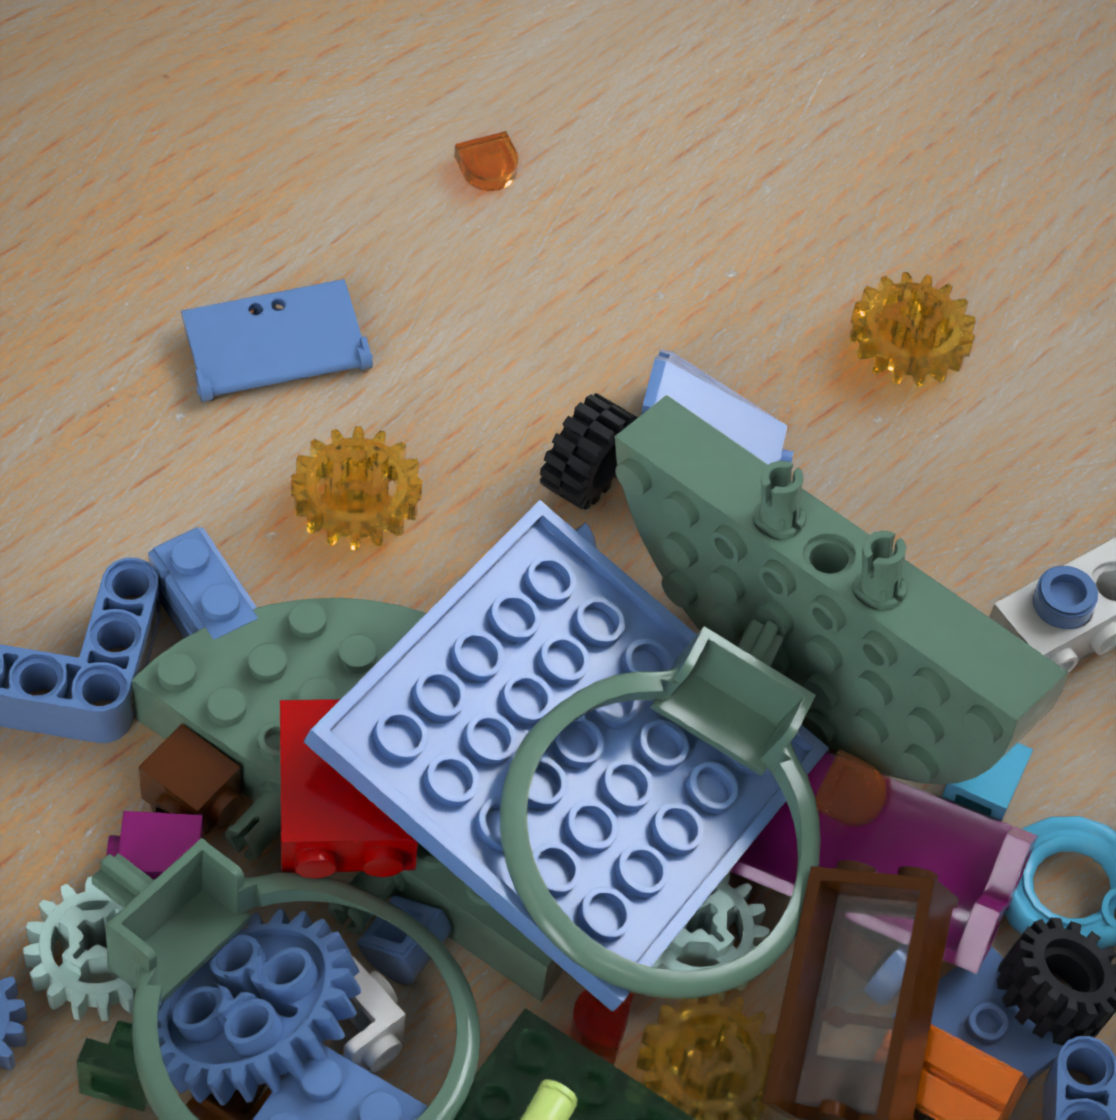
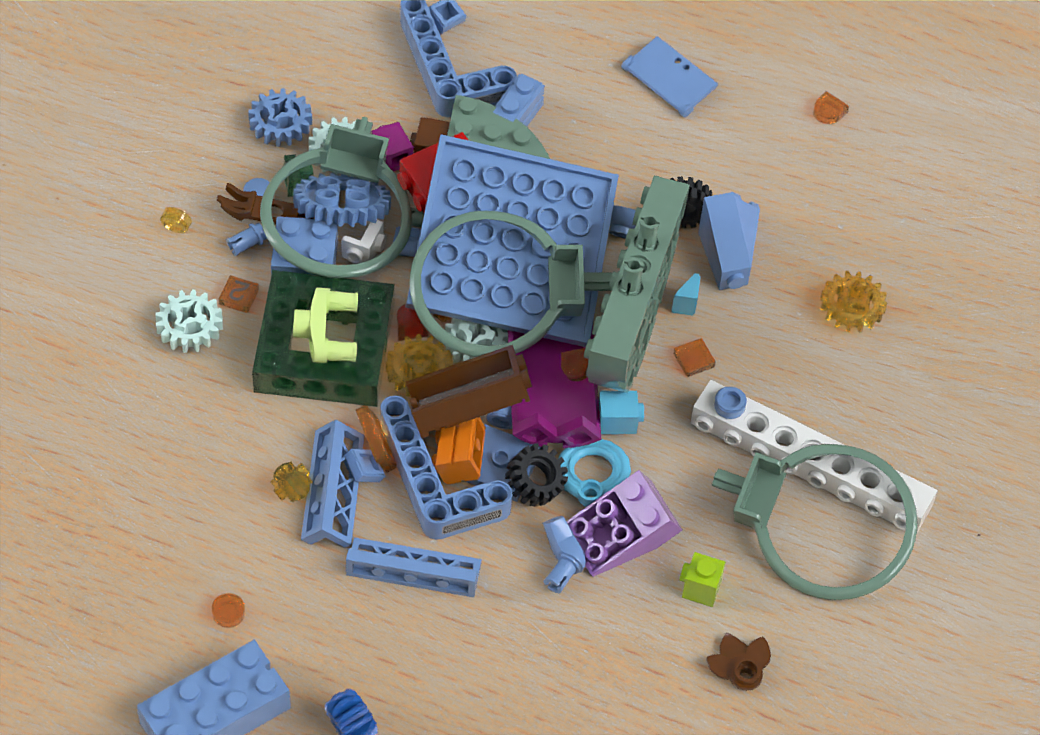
camera: 65 degrees right, 0 degrees up
(356, 487) = (611, 134): clear yellow gear -> none

